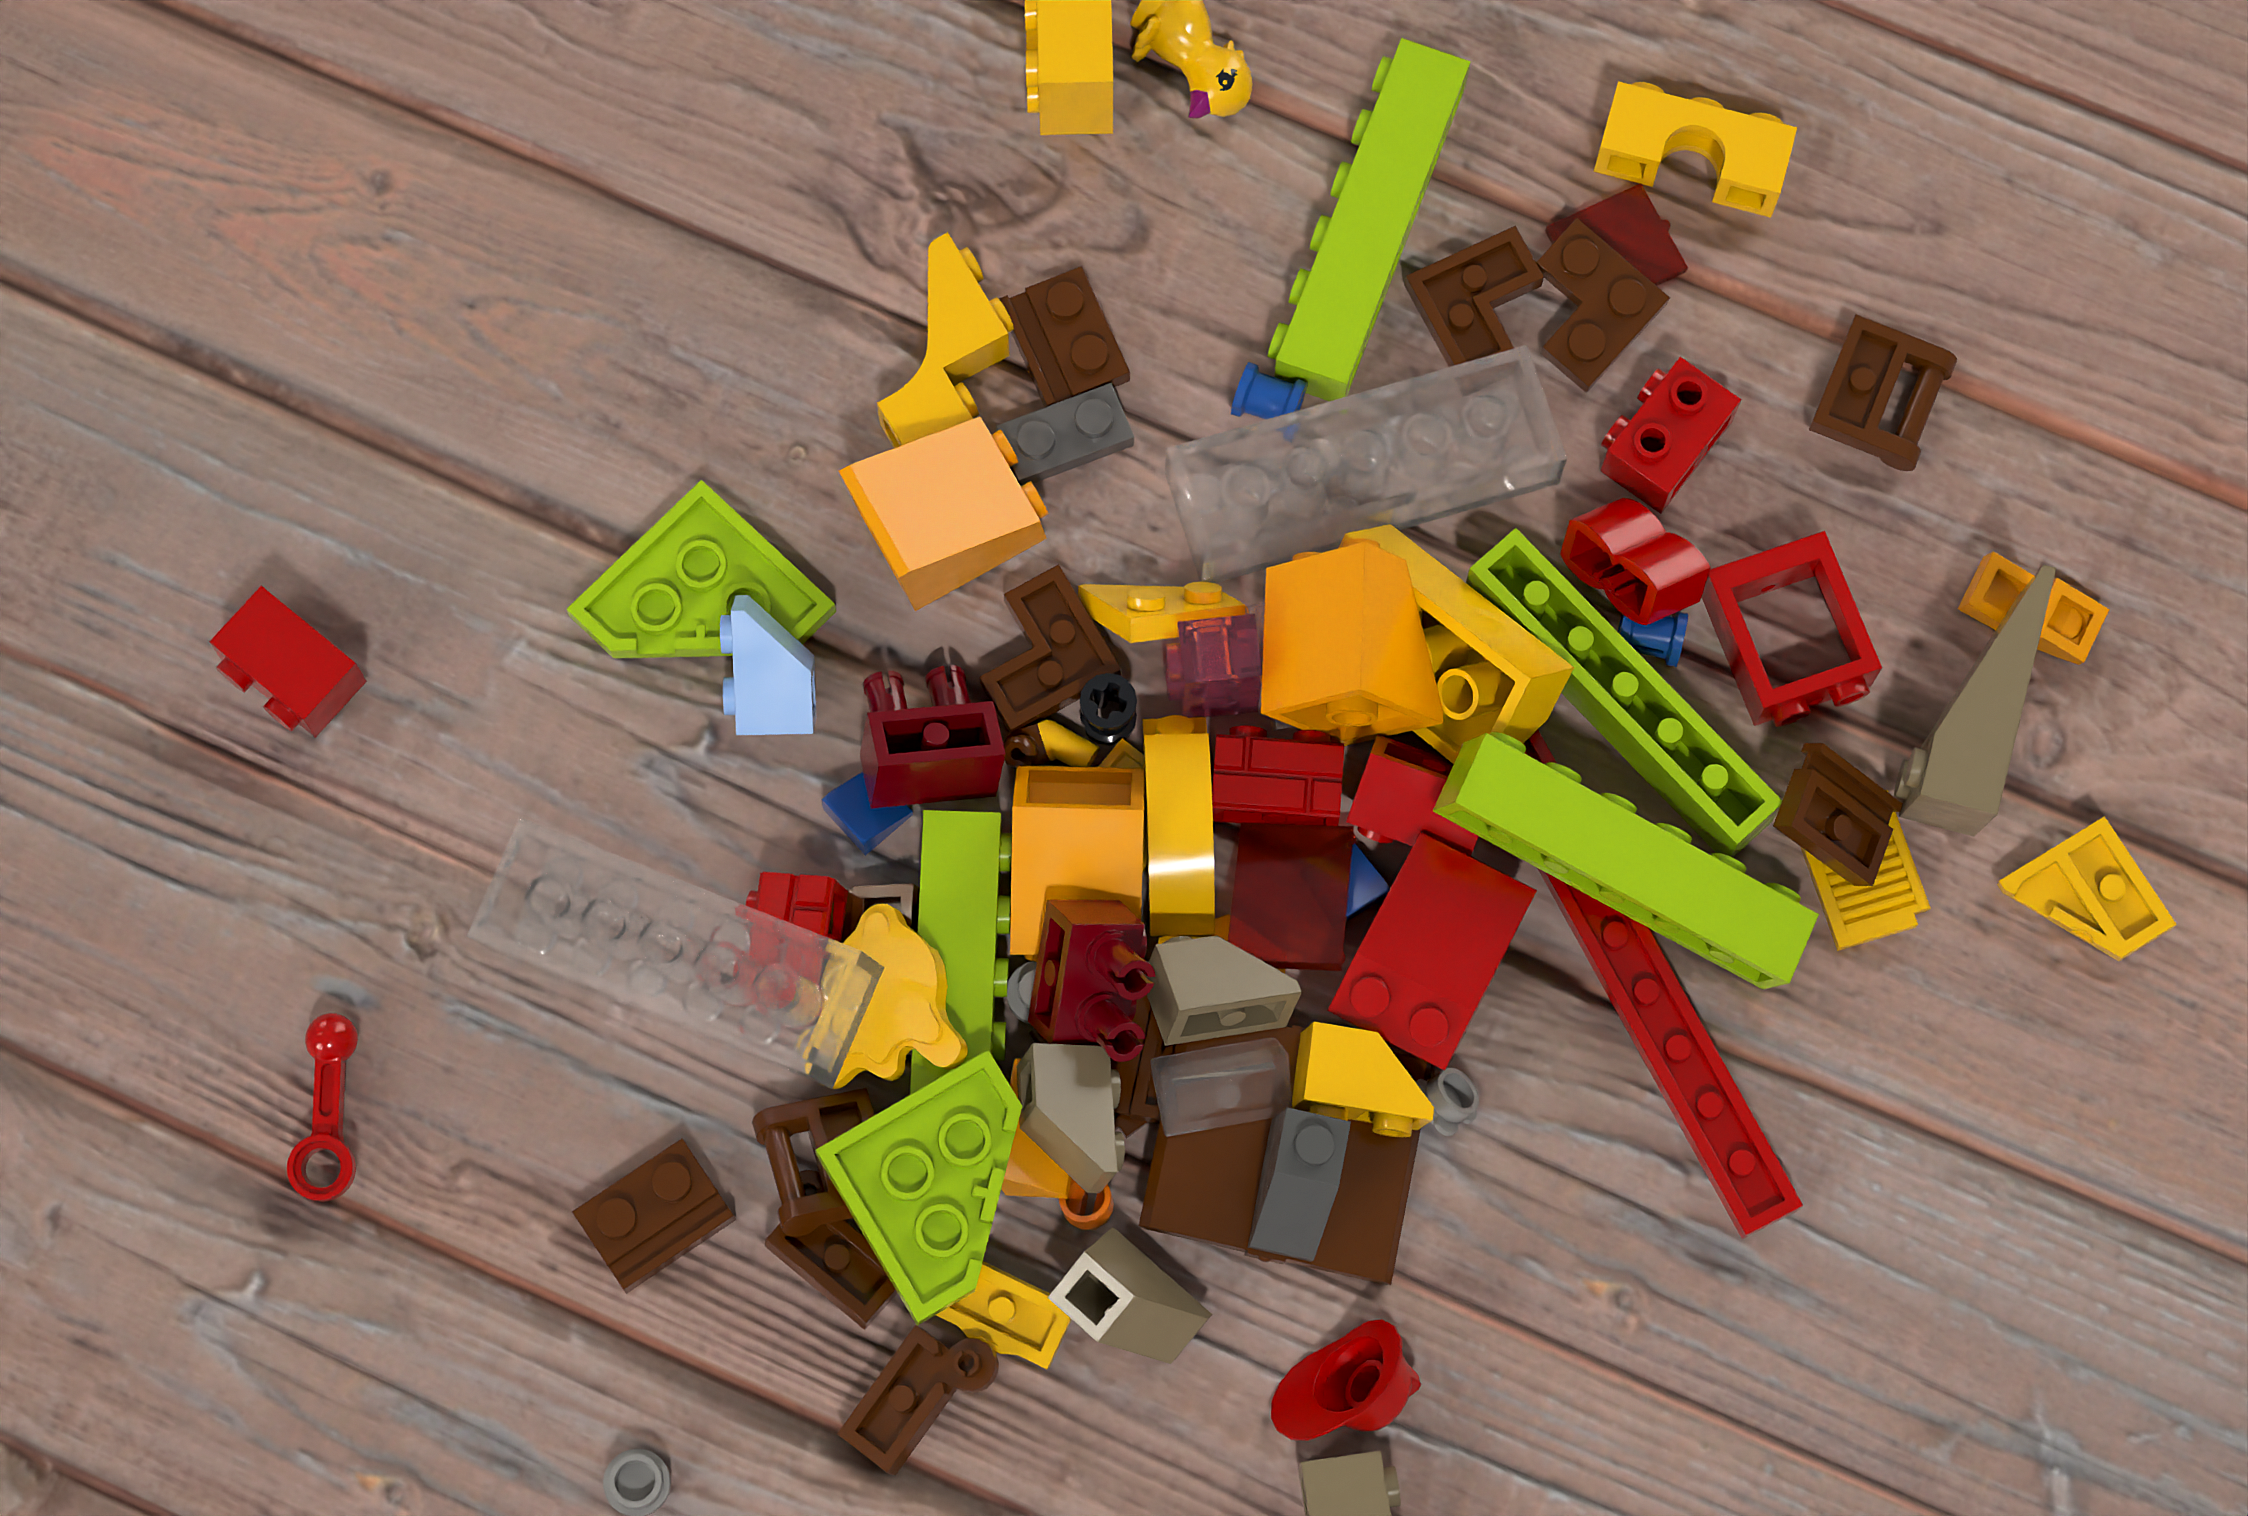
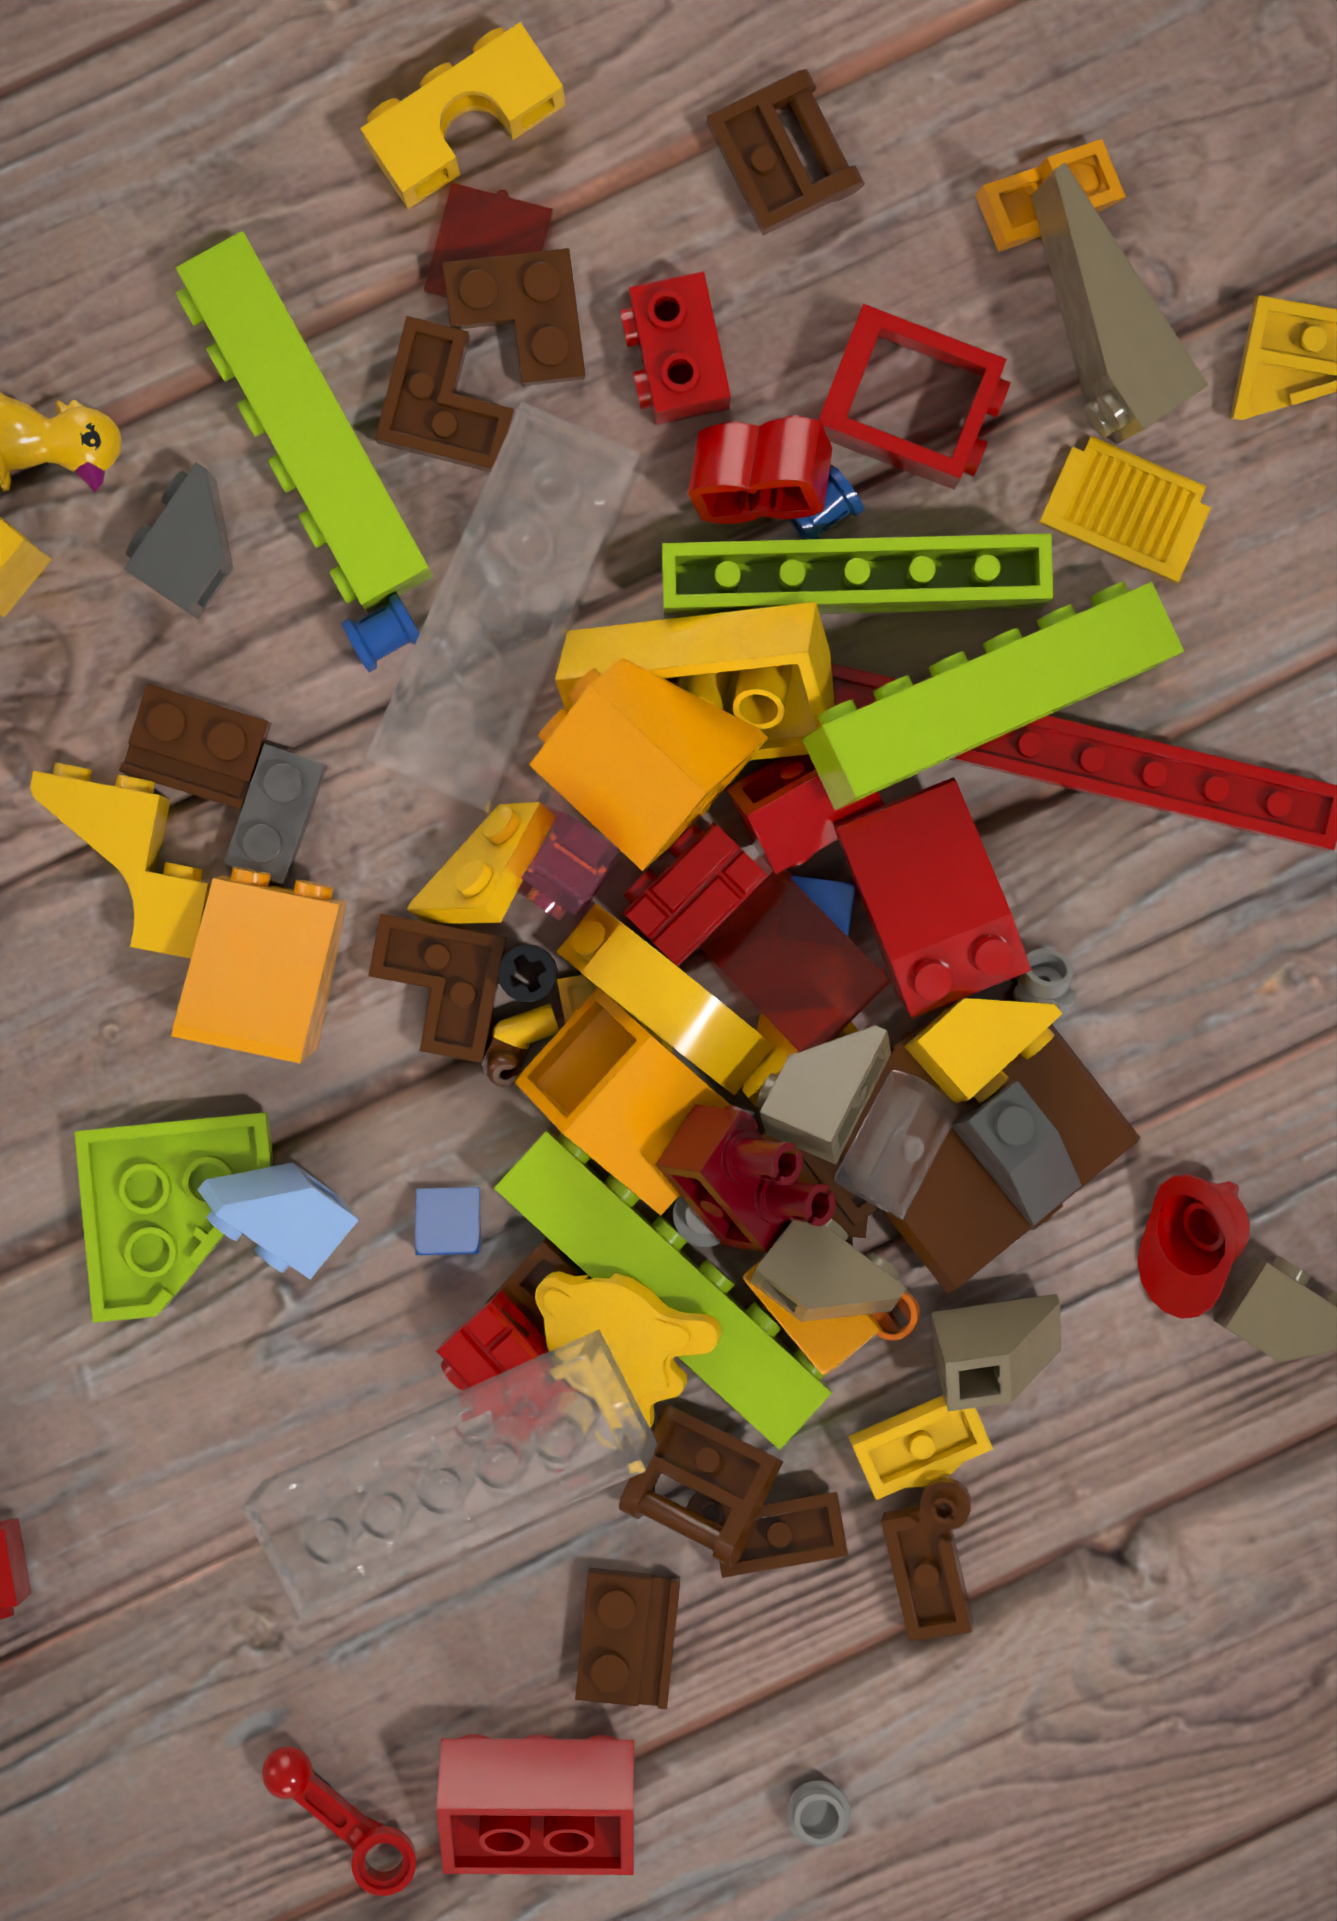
camera: 50 degrees left, 15 degrees up
(460, 1252) = (536, 1805): none -> red slope
(929, 751) = (451, 1142): dark red brick -> none
(930, 1181) = (791, 1431): lime plate -> none
(1208, 211) = (188, 545): none -> dark grey slope
(1837, 815) = (1090, 498): reddish brown plate -> none

